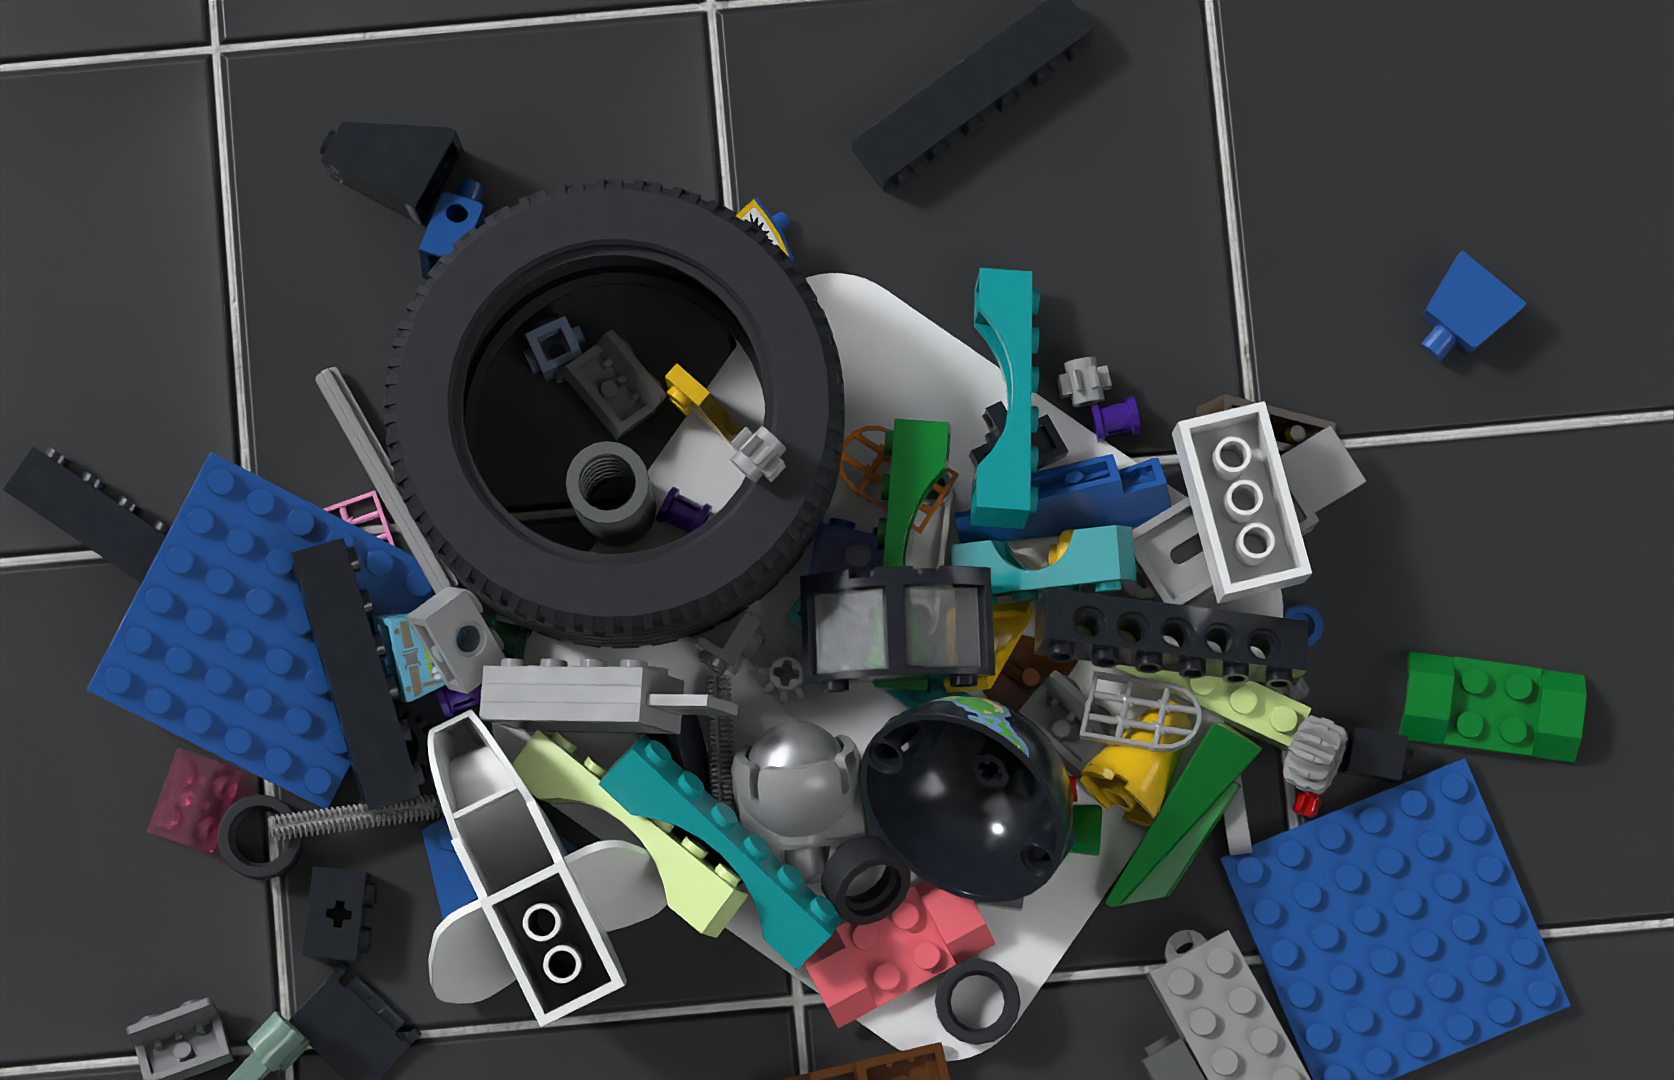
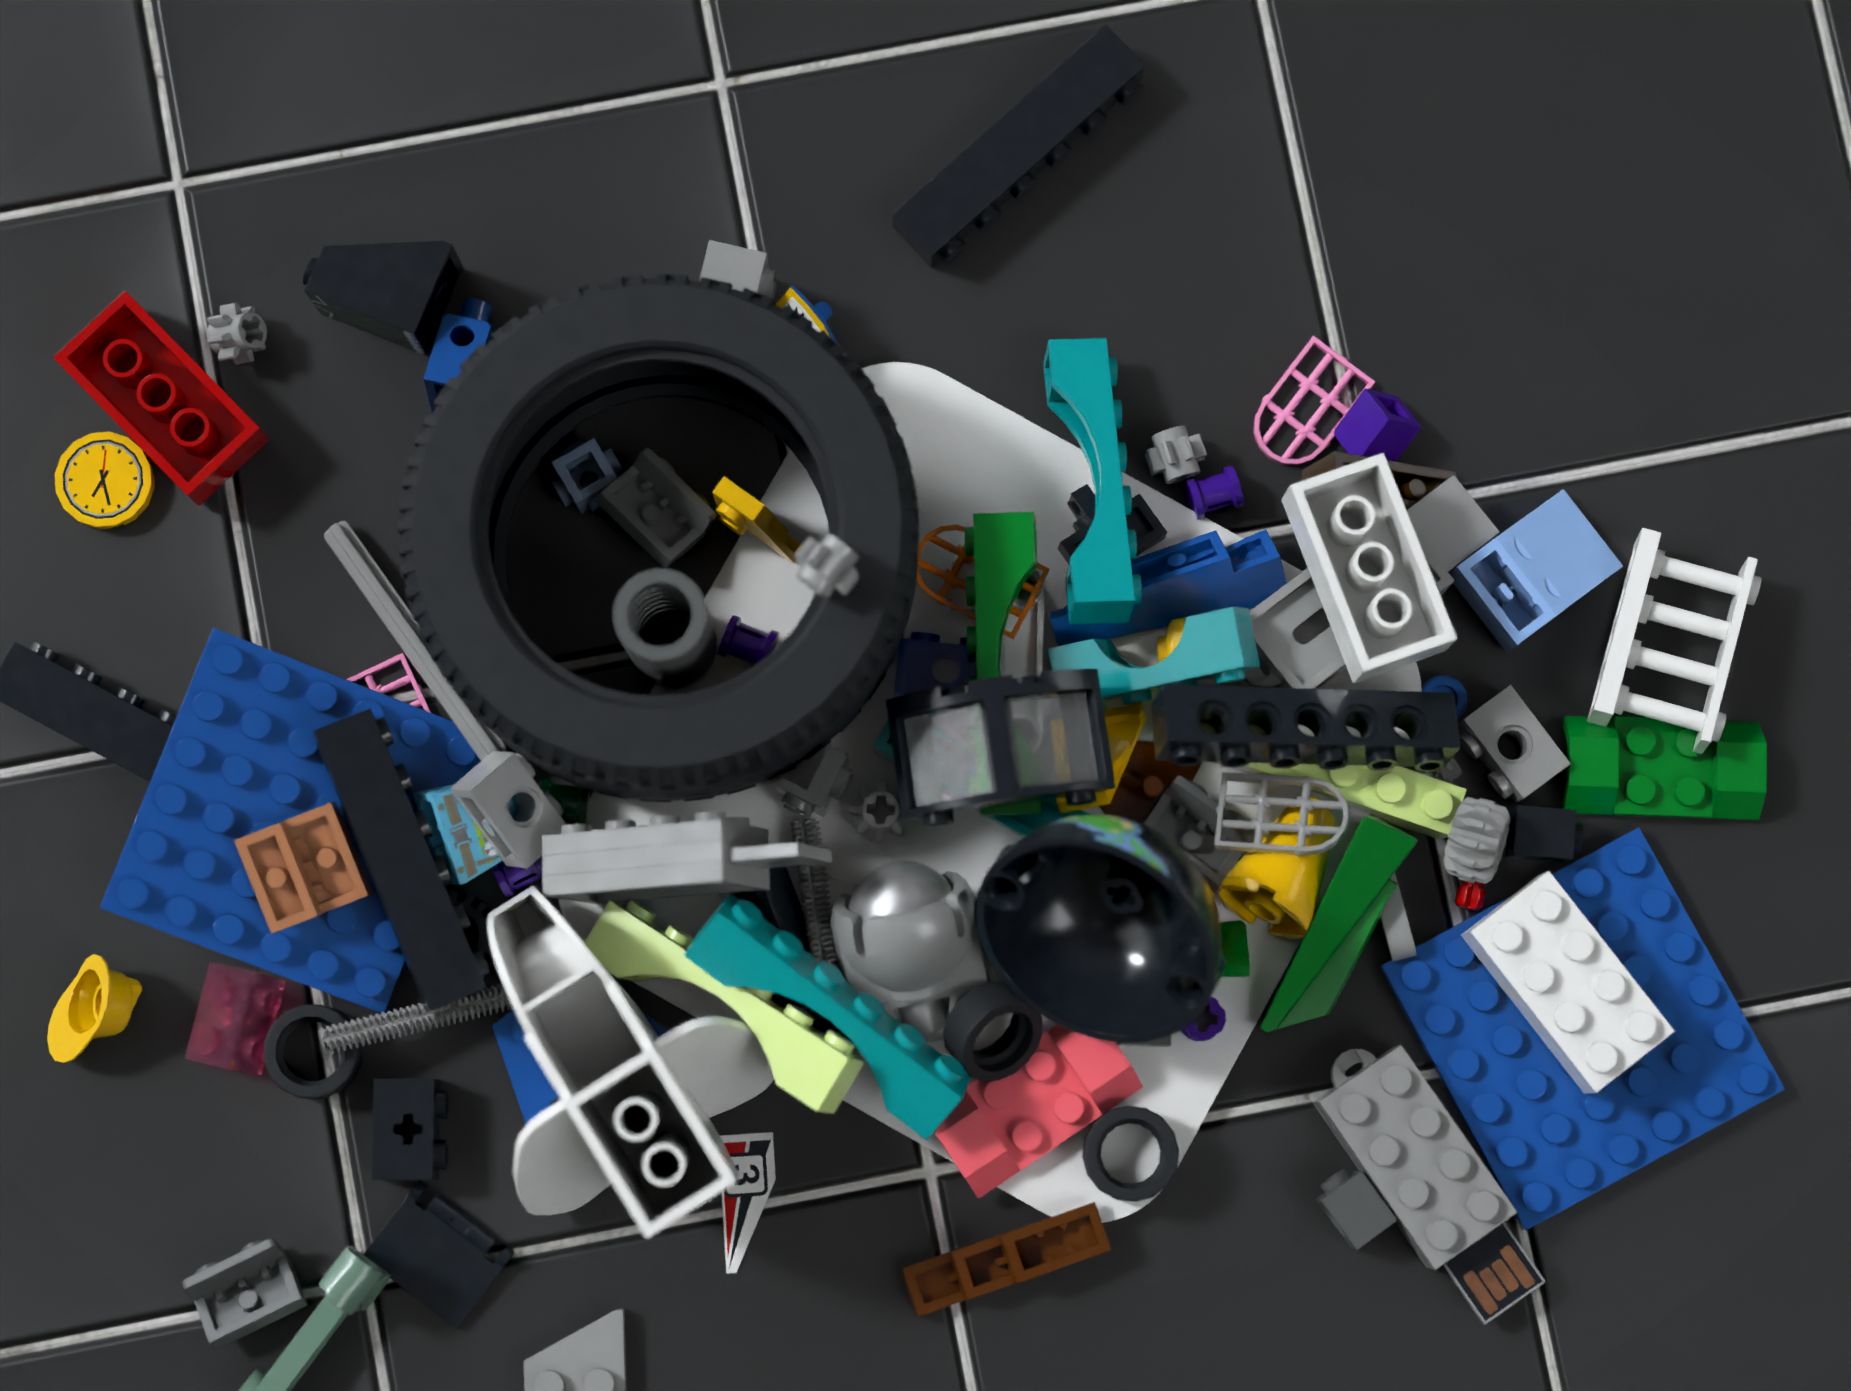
camera: 10 degrees left, 0 degrees up
(68, 778) = (91, 1008): none -> yellow piece
(125, 309) = (104, 480): none -> yellow tile
(184, 241) = (161, 398): none -> red brick
(255, 189) = (236, 333): none -> light grey gear
(269, 672) = (303, 867): none -> nougat slope
(633, 1001) = (747, 1197): none -> sticker
(709, 179) = (740, 267): none -> light grey brick
(1061, 899) = (1212, 1009): none -> dark purple bush
(1210, 329) = (1306, 384): none -> bright pink window
(1268, 374) = (1377, 426): none -> dark purple panel
(1357, 646) = (1538, 756): none -> light grey brick
(1382, 890) = (1567, 983): none -> white brick
(1396, 518) = (1534, 570): none -> light blue slope
(1467, 308) = (1587, 332): blue torso -> none
(1486, 561) = (1627, 652): none -> white fence

